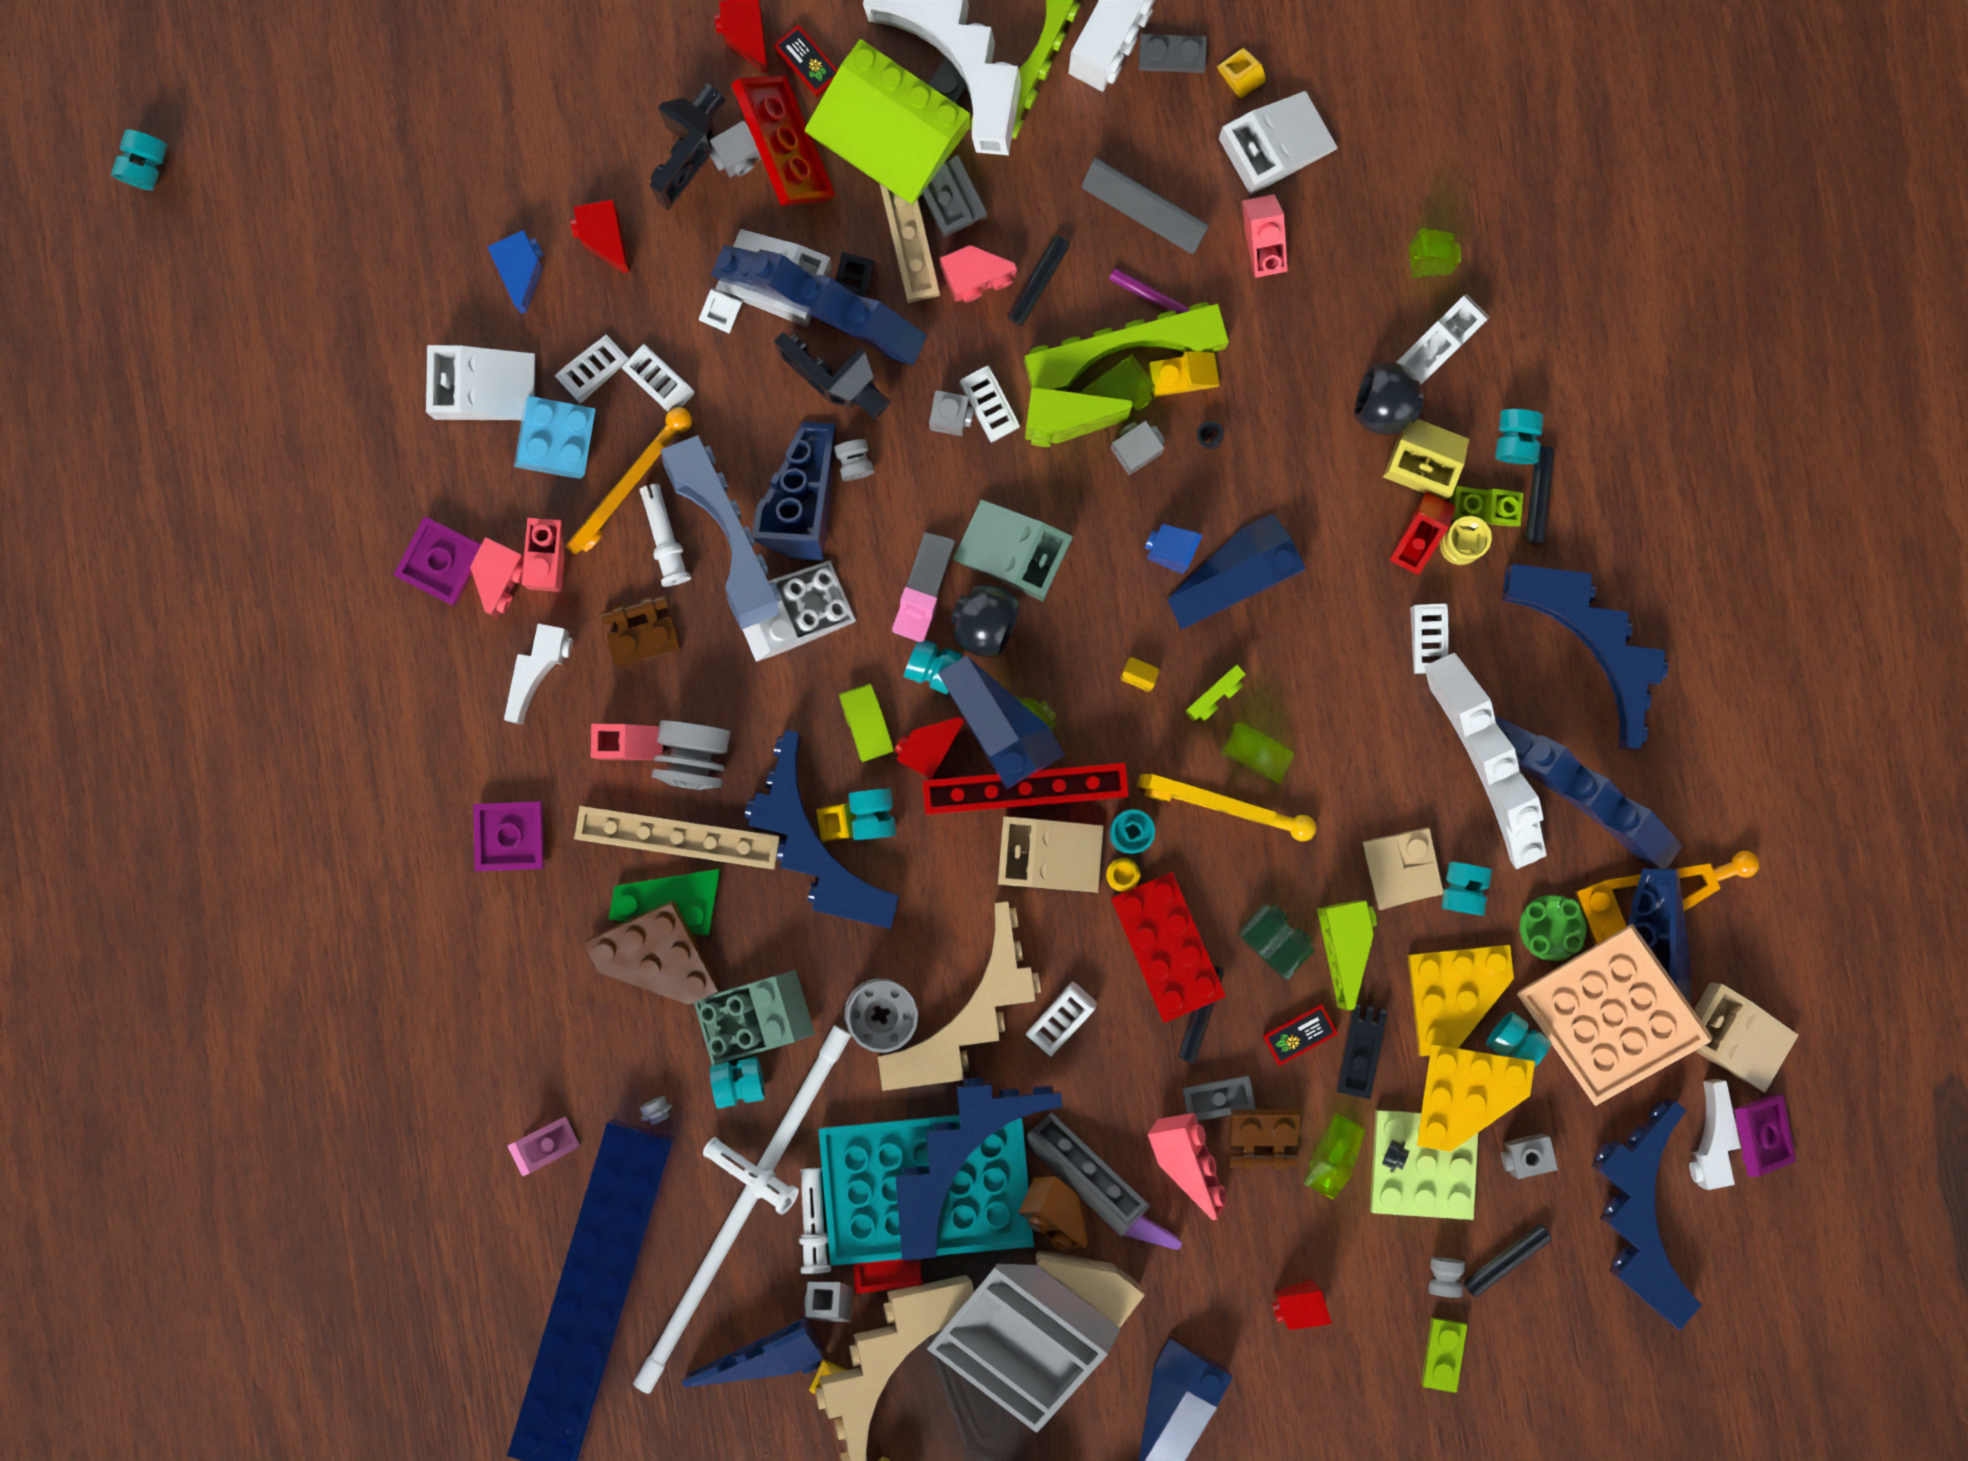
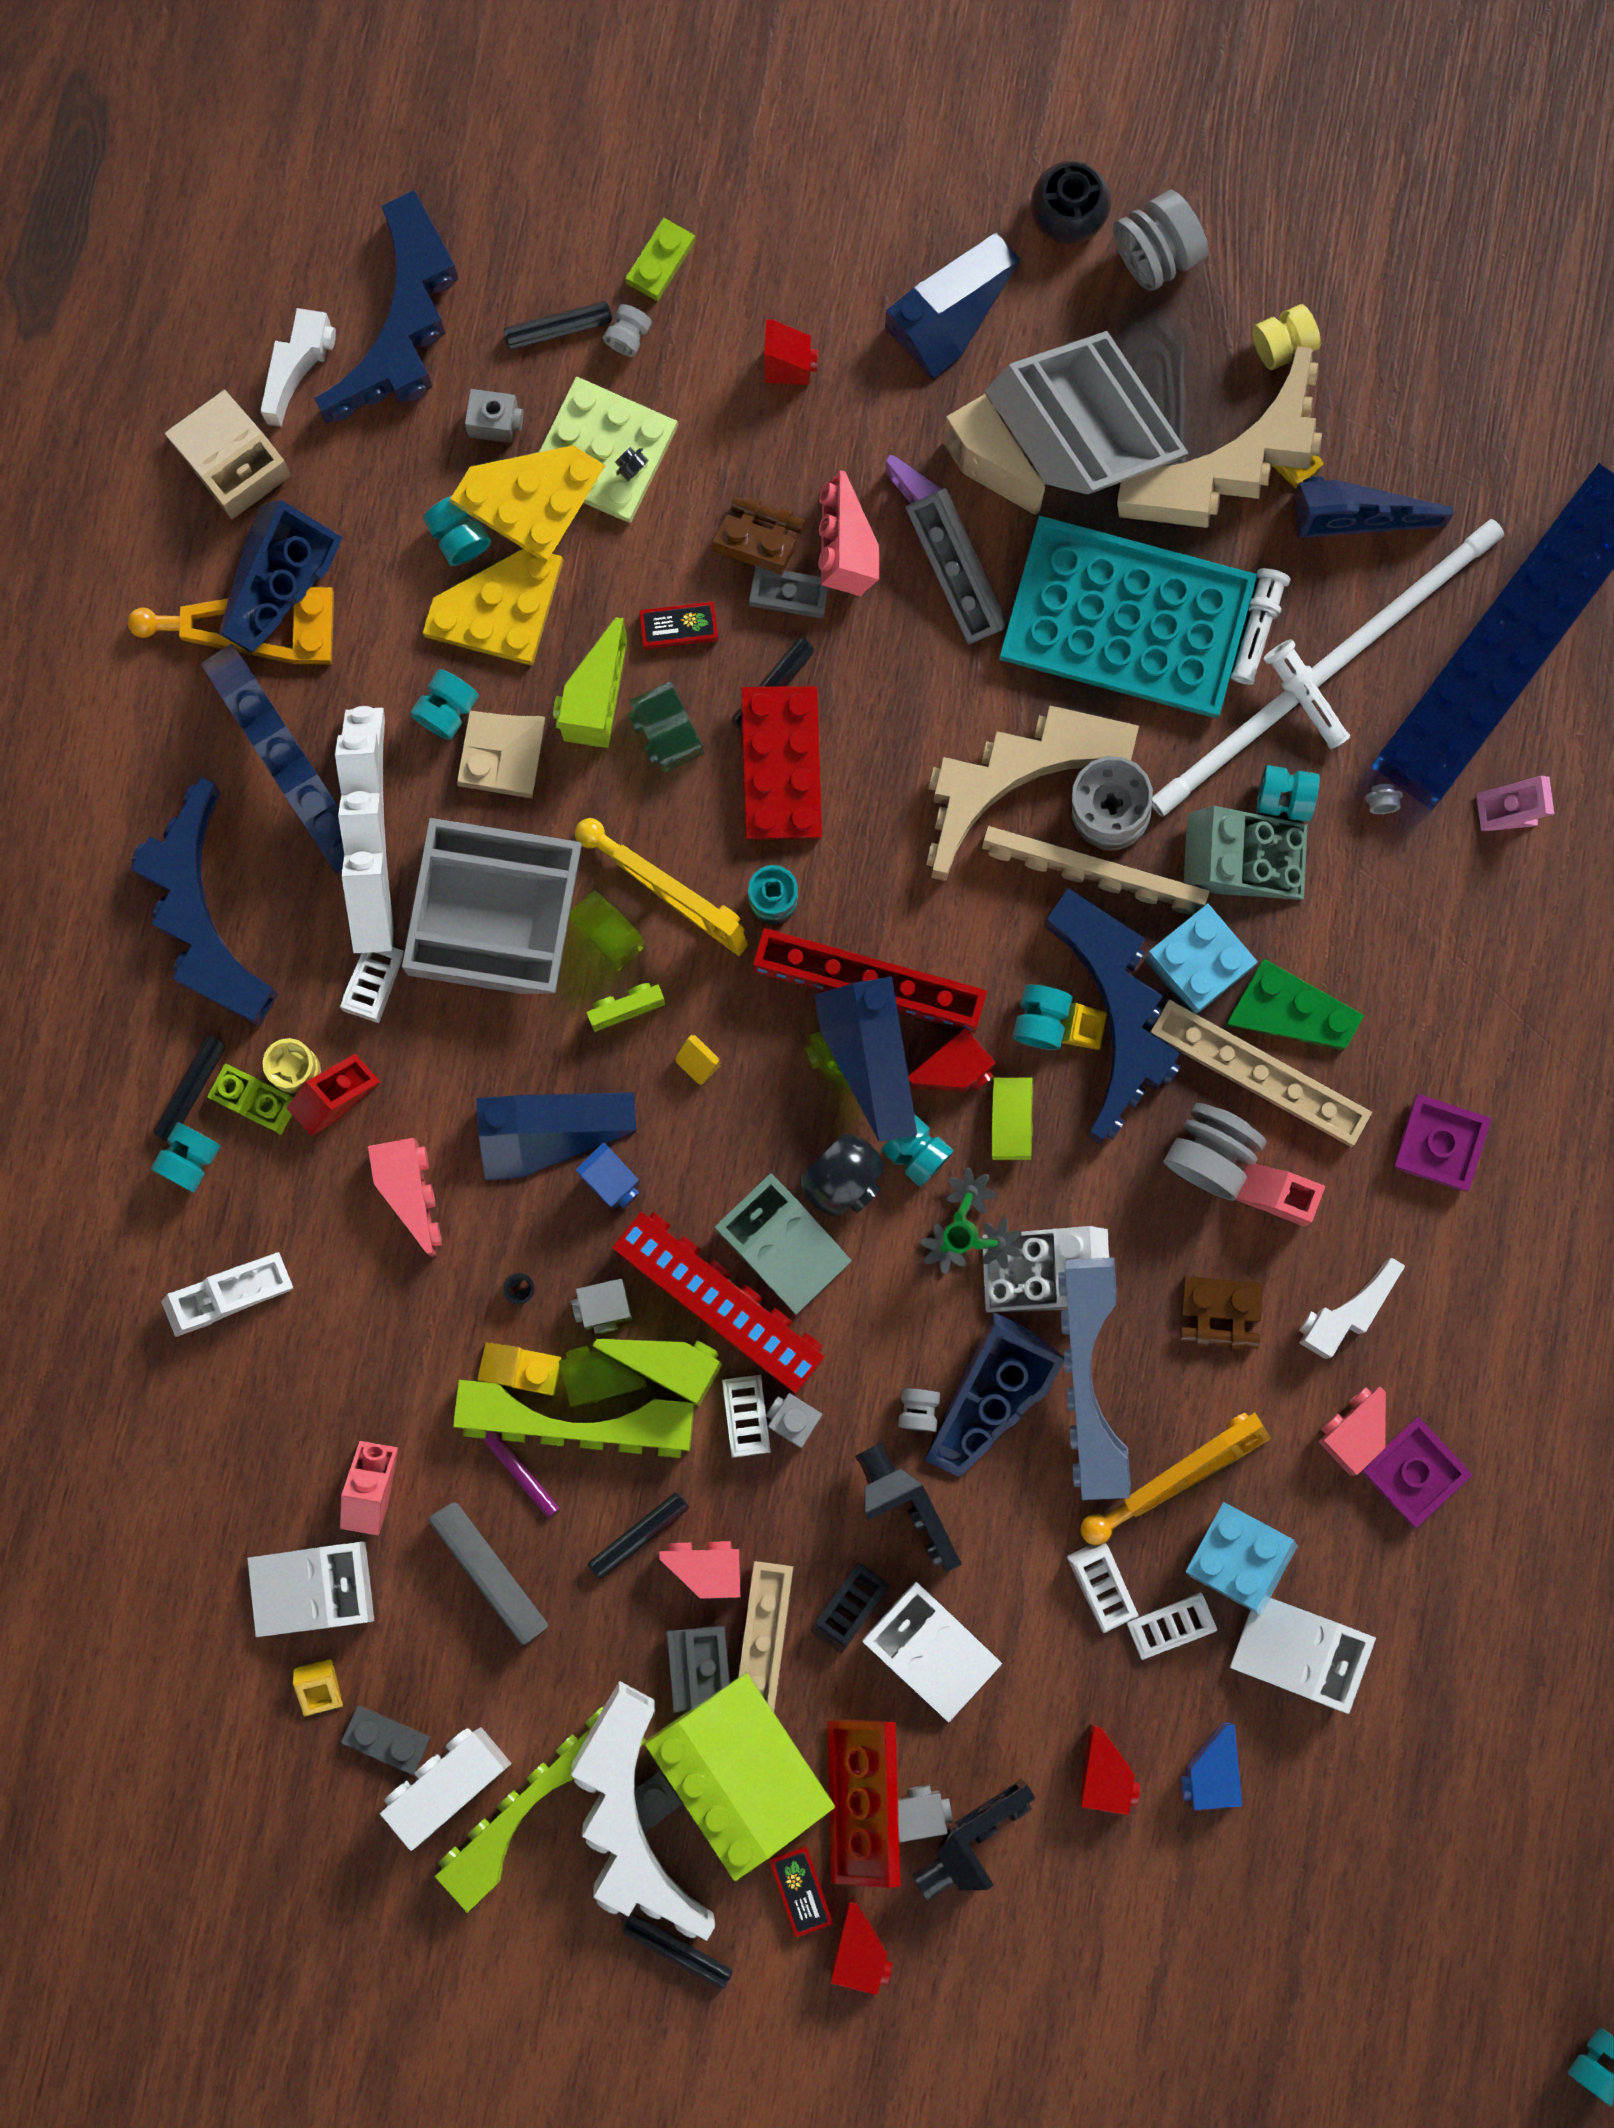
camera: 155 degrees left, 5 degrees down
(543, 555) = (1299, 1431): coral slope -> none
(655, 954) = (1327, 959): reddish brown plate -> none
(667, 550) = (1159, 1386): white pin -> none
(720, 310) = (1005, 1636): white plate -> none
(759, 912) = (1200, 960): none -> medium azure brick
(823, 298) = (894, 1597): dark blue arch -> none
(828, 1301) = (1272, 537): light grey brick -> none
(860, 955) = (1109, 875): none -> tan plate
(871, 602) = (963, 1234): none -> dark grey plant
(887, 1275) = (1201, 543): red tile -> none
(915, 614) = (919, 1207): bright pink slope -> none
(931, 564) = (880, 1260): dark grey slope -> none
(981, 1115) = (1089, 643): dark blue arch -> none
(1045, 484) = (718, 1302): none -> red brick
(1050, 854) = (870, 904): tan slope -> none
(1056, 1212) = (1004, 540): dark orange slope -> none
(1082, 998) = (908, 752): white slope -> none
(1123, 874) = (799, 856): yellow plate -> none
(1335, 1157) = (692, 488): clear neon green slope -> none
(1337, 481) = (400, 1179): none -> coral slope
(1357, 730) = (491, 908): none -> light grey slope
(1361, 1052) = (623, 581): black hinge -> none
(1388, 398) = (311, 1250): black wheel -> none
(1427, 459) = (293, 1173): light yellow slope -> none
(1433, 253) = (192, 1393): clear neon green slope -> none
(1553, 927) = (370, 633): bright green dish -> none
(1614, 1015) = (347, 517): light nougat plate -> none
(1765, 1135) = (244, 345): magenta plate -> none

